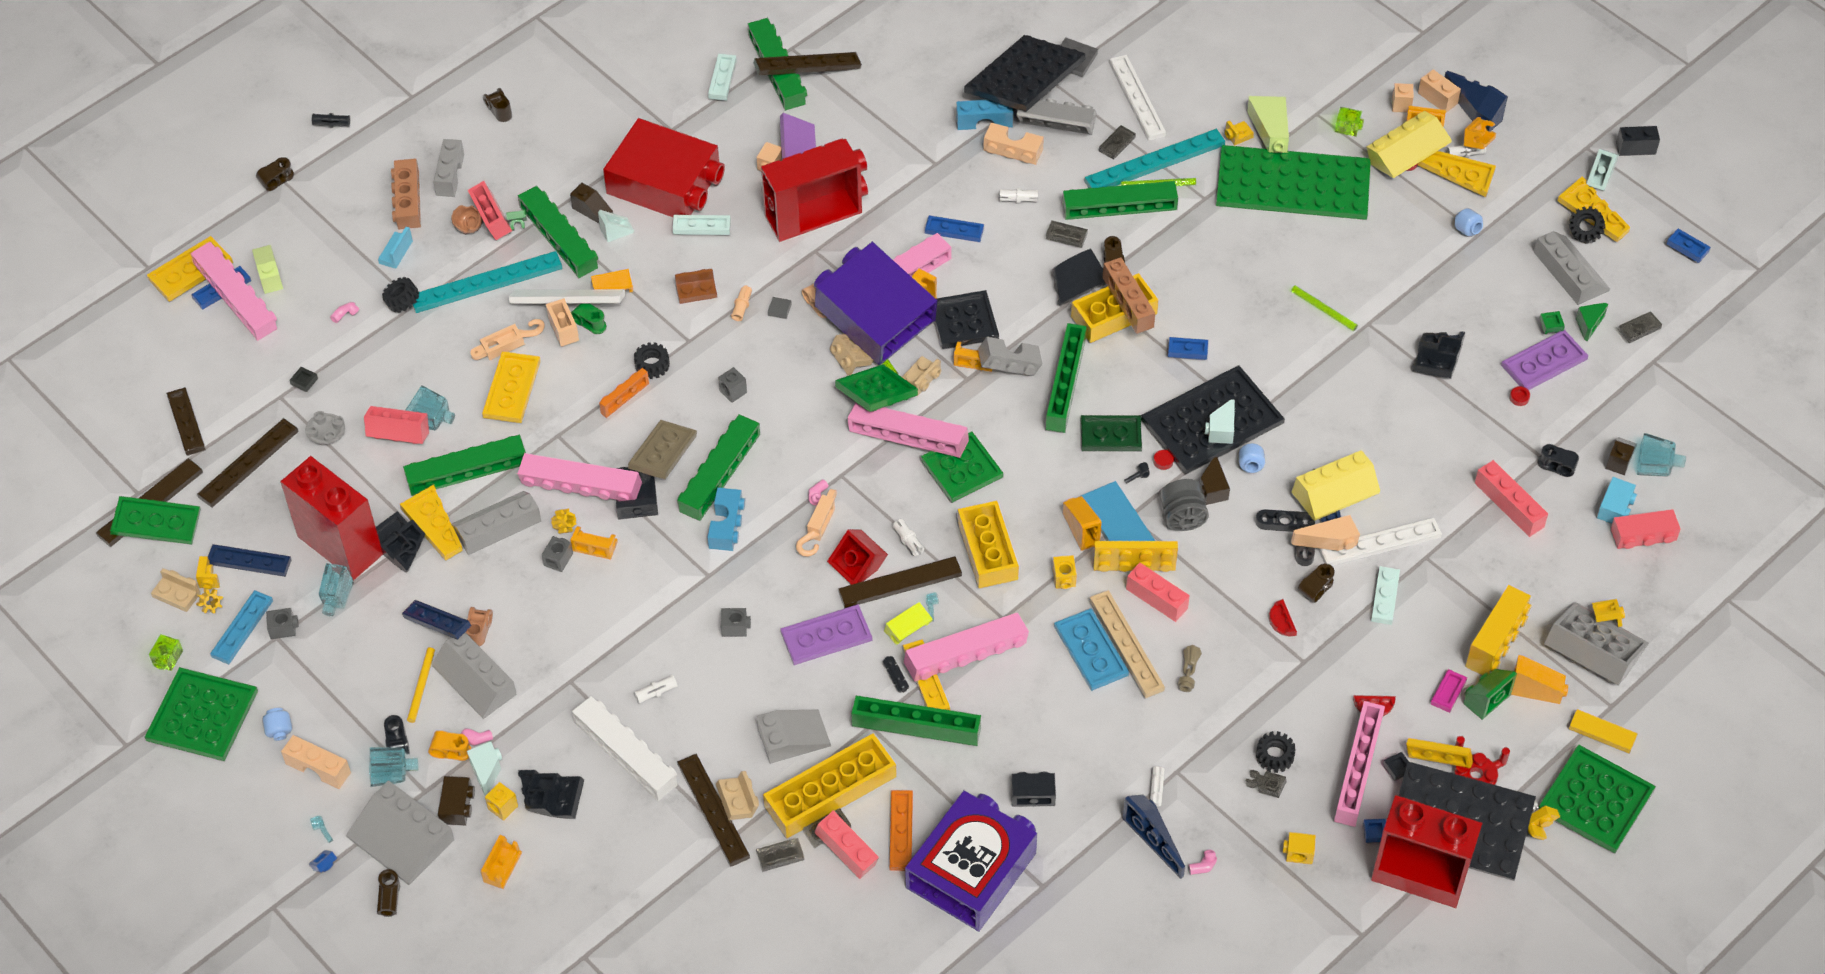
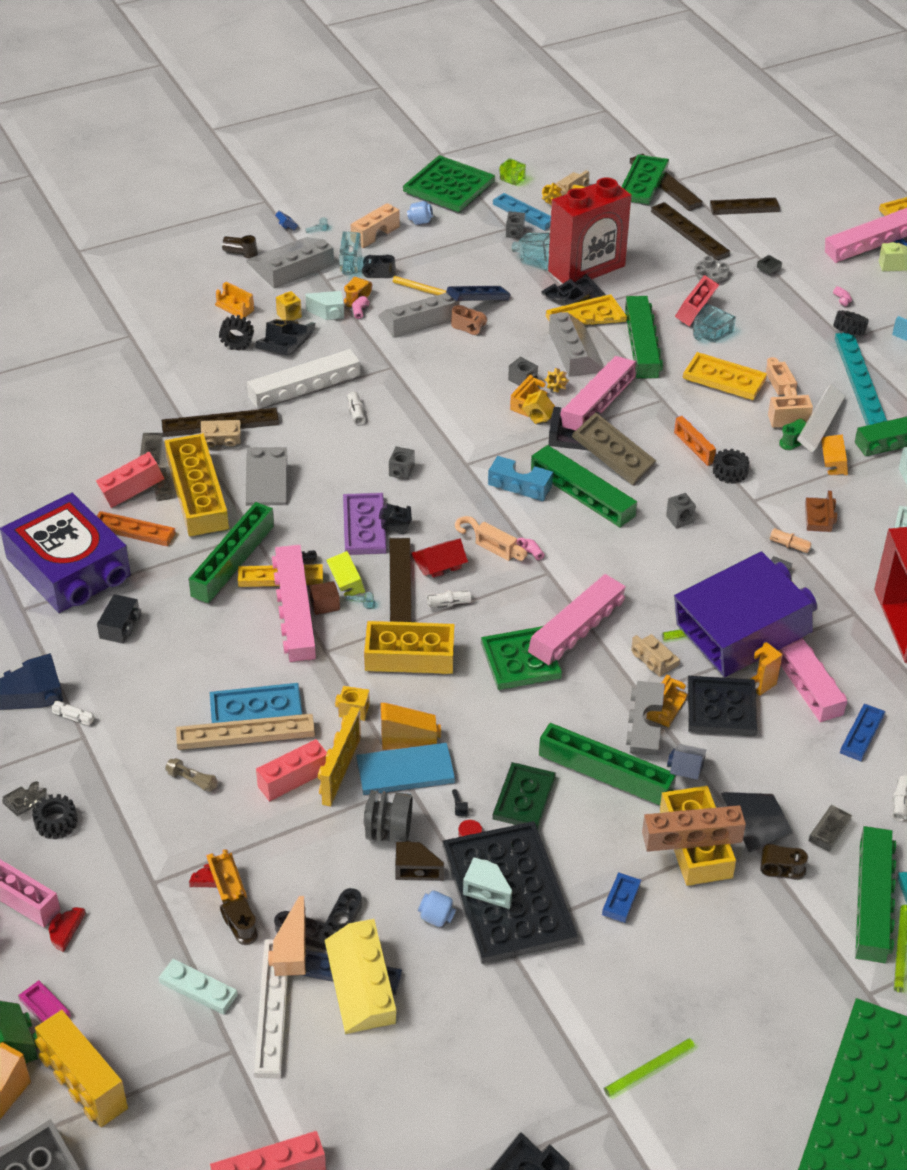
camera: 105 degrees right, 10 degrees down
(455, 800) = (303, 283): dark brown brick -> none
(570, 831) = (234, 340): none -> black tyre
(617, 523) = (538, 407): none -> yellow brick
(819, 602) = (395, 518): none -> black brick
(876, 387) = (638, 603): green plate -> none
(944, 626) = (324, 597): none -> copper panel
(1051, 317) = (687, 761): none -> brick
(1289, 601) = (226, 876): none -> light orange hinge

